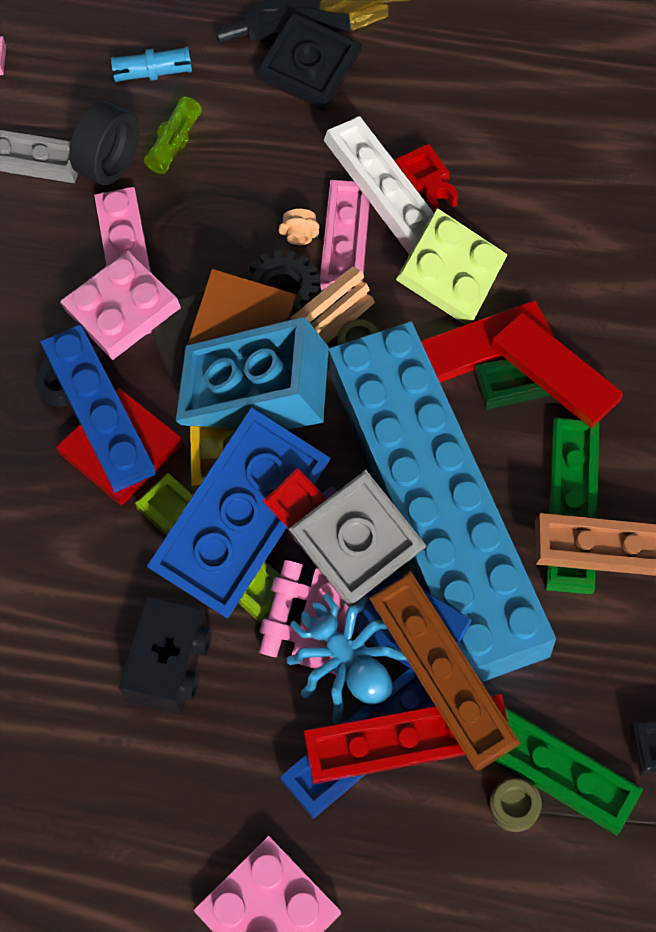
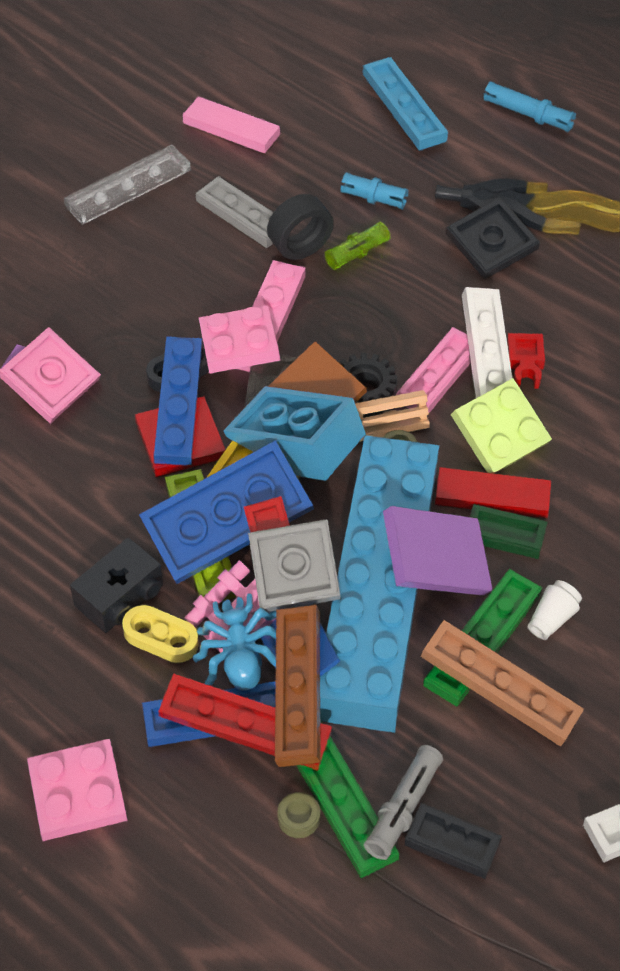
camera: 25 degrees right, 10 degrees down
(246, 684) = (163, 633): none -> light yellow plate
(299, 226) = (407, 348): light nougat plate -> none
(484, 441) = (437, 551): none -> medium lavender tile
(557, 370) = (531, 534): red tile -> none
(618, 749) = (383, 836): none -> light grey pin
(626, 438) = (554, 609): none -> white cone

